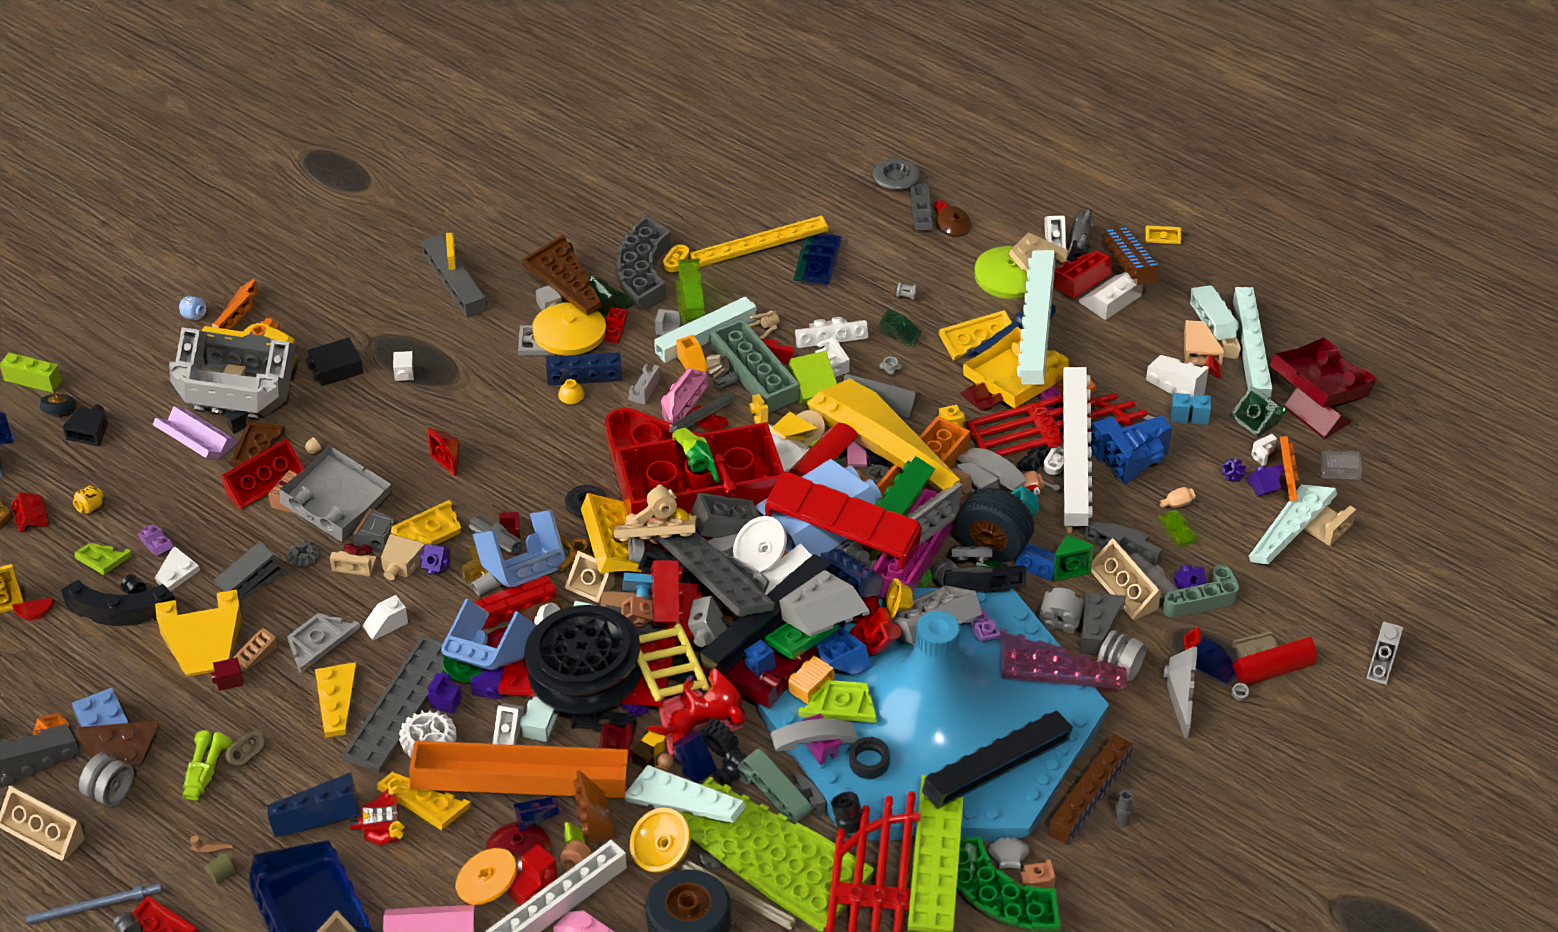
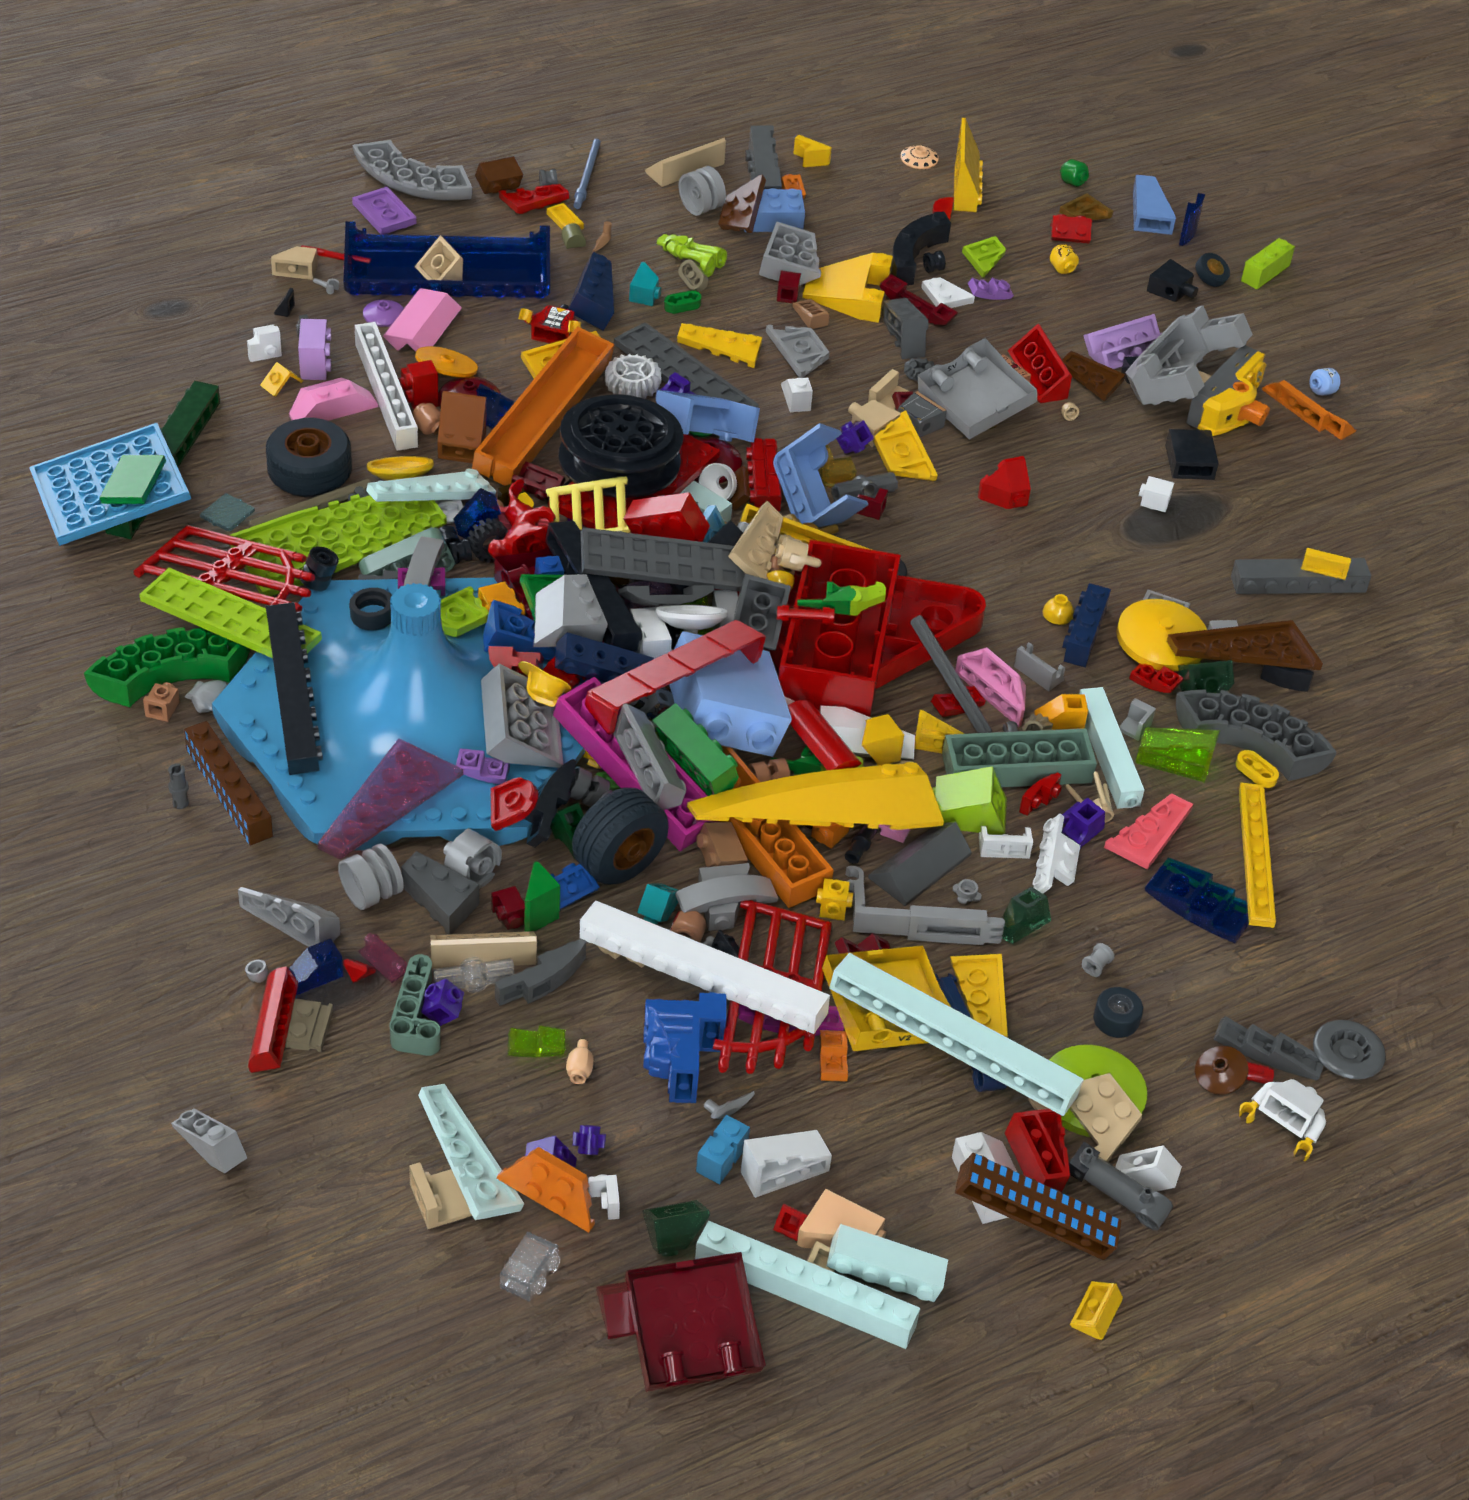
camera: 110 degrees right, 0 degrees up
(179, 684) = (791, 251): none -> light grey wedge
(185, 891) = (563, 216): none -> yellow tile
(205, 586) = (896, 289): none -> dark red slope
(278, 779) = (644, 286): none -> teal slope
(283, 749) = (682, 302): none -> green beam
(776, 294) = (1150, 833): none -> coral wing
(790, 320) = (1083, 821): none -> dark purple brick
(941, 375) = (923, 922): none -> light grey hinge
(943, 271) = (1118, 1012): none -> black wheel
(965, 184) = (1292, 1107): none -> white torso
(1005, 594) = (512, 802): none -> red tile
(1082, 580) = (508, 907): none -> dark red brick
(1174, 630) = (383, 958): none -> clear pink hinge

